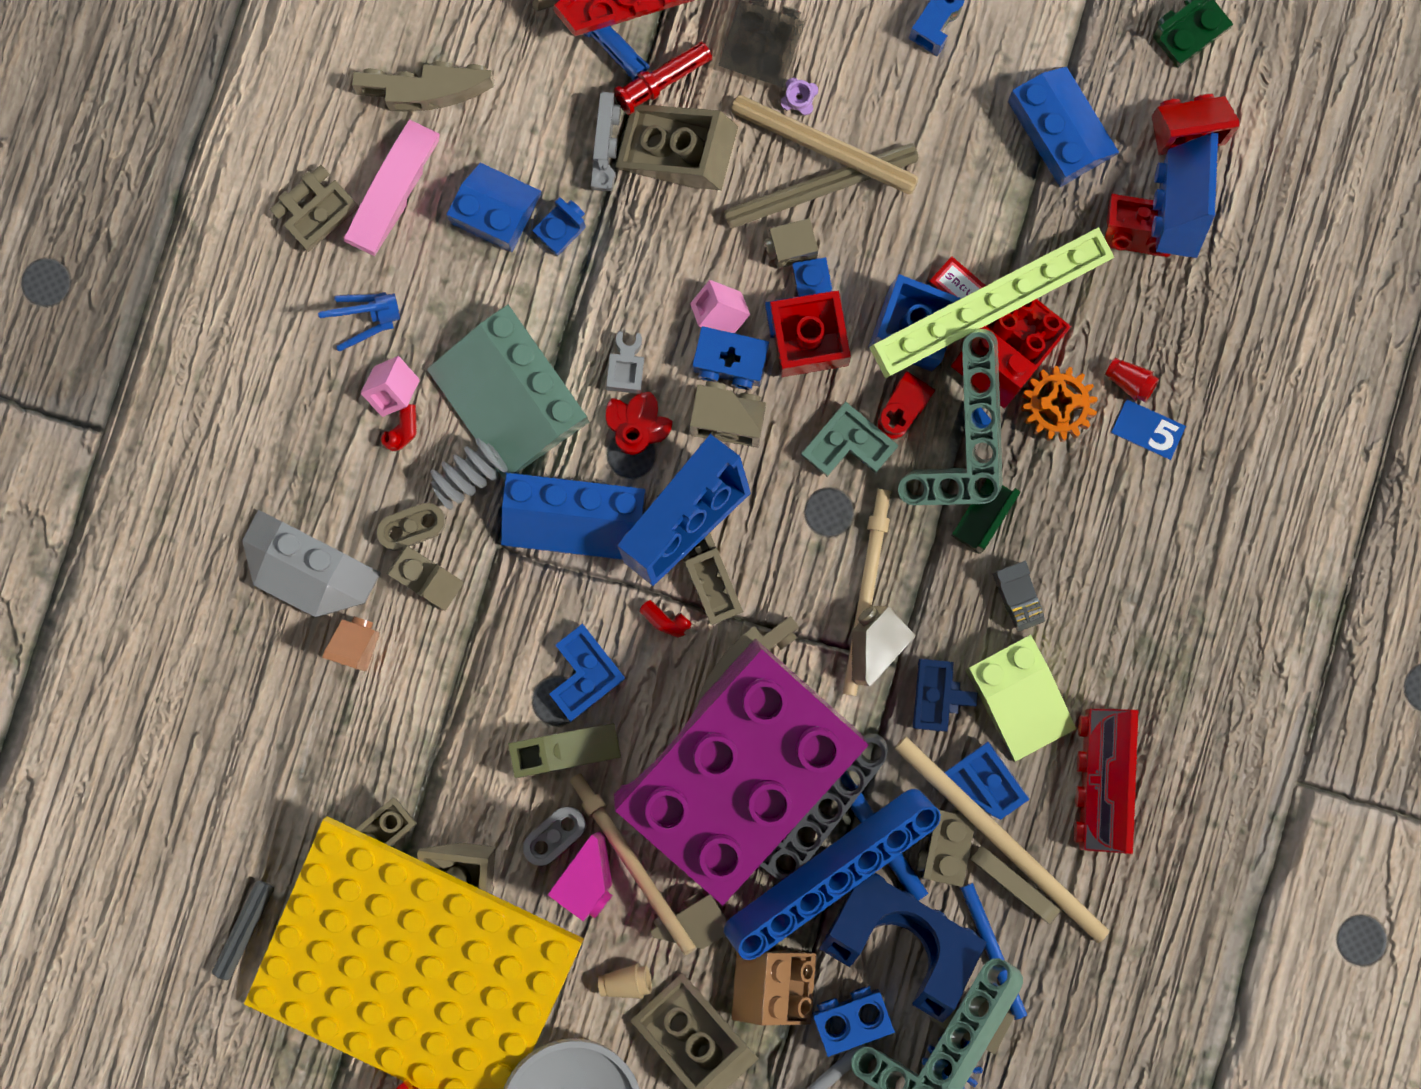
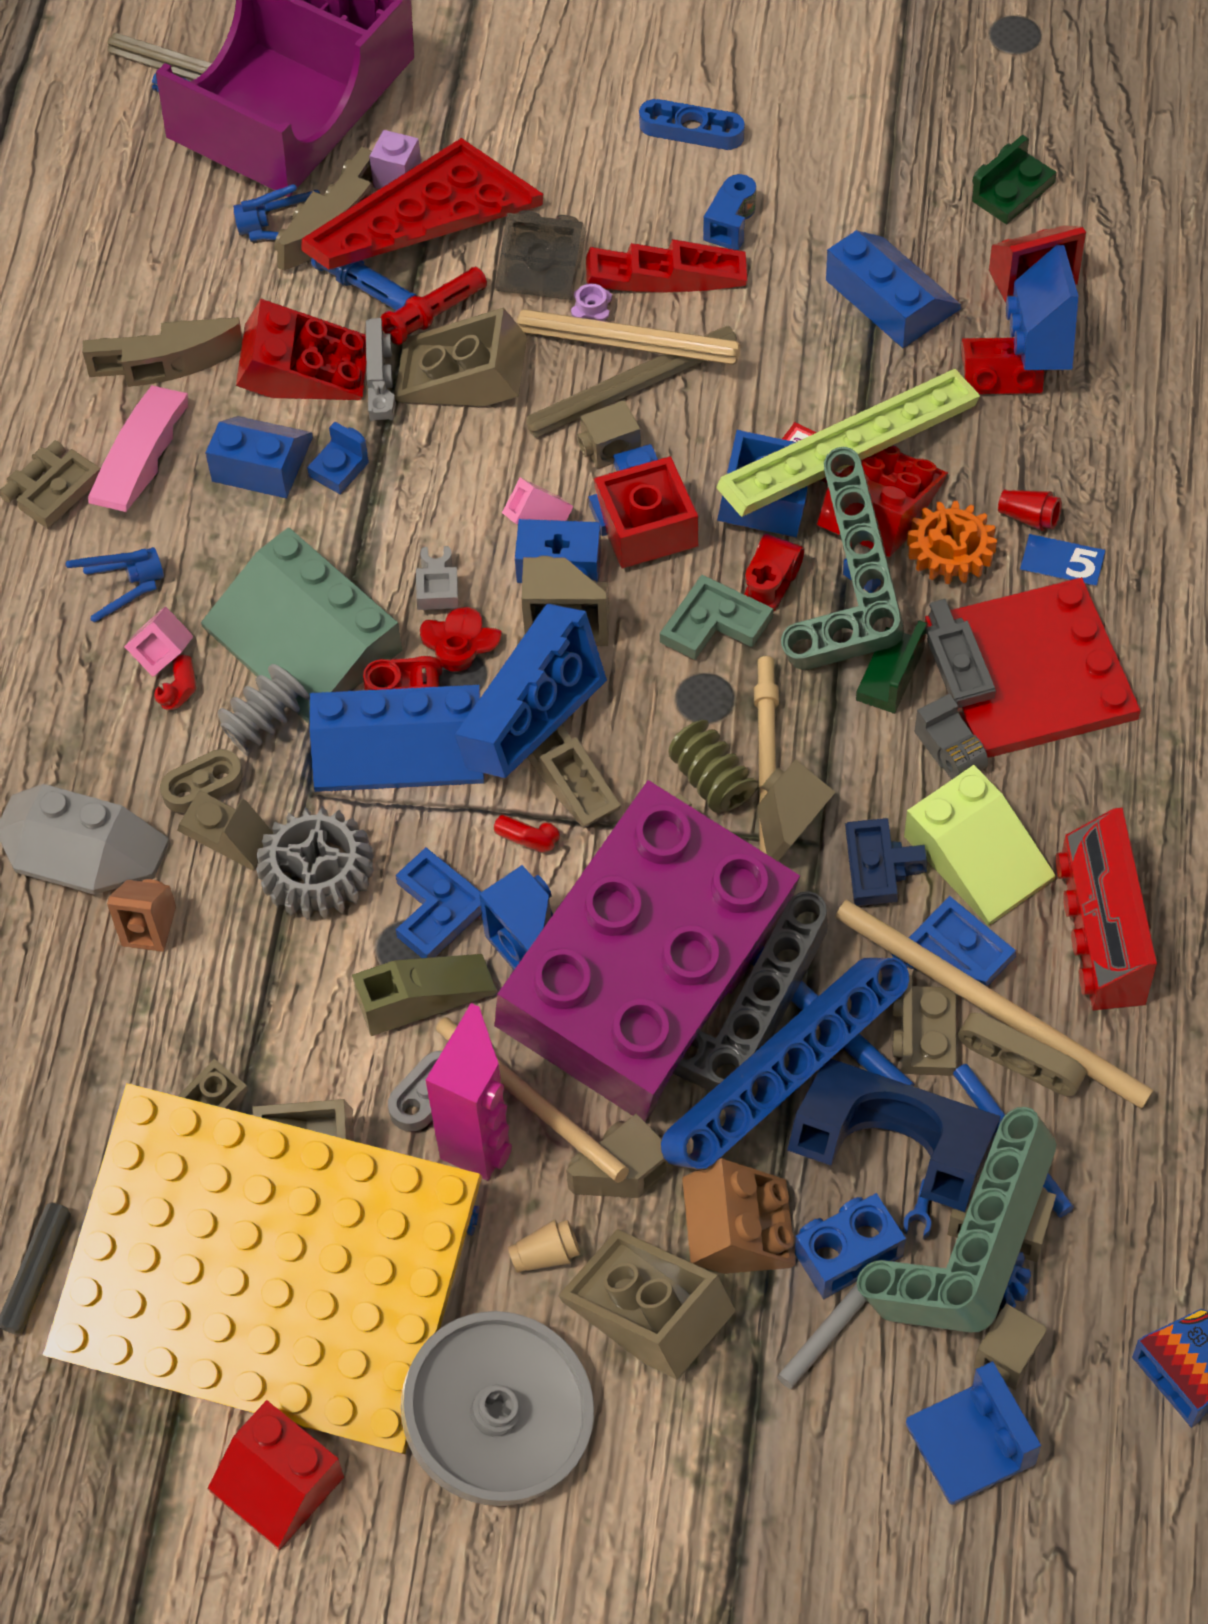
camera: 10 degrees left, 25 degrees down
(489, 636) = (333, 875): none -> light grey gear
(541, 113) = (300, 356): none -> red slope
(588, 464) = (402, 673): none -> red piece
(648, 715) = (515, 913): none -> blue slope
(822, 591) = (711, 767): none -> olive piece
(870, 71) = (676, 269): none -> red slope
(910, 997) = (919, 1213): none -> blue hand
(1040, 523) = (958, 657): none -> dark grey hinge
(1099, 532) = (1048, 669): none -> red plate

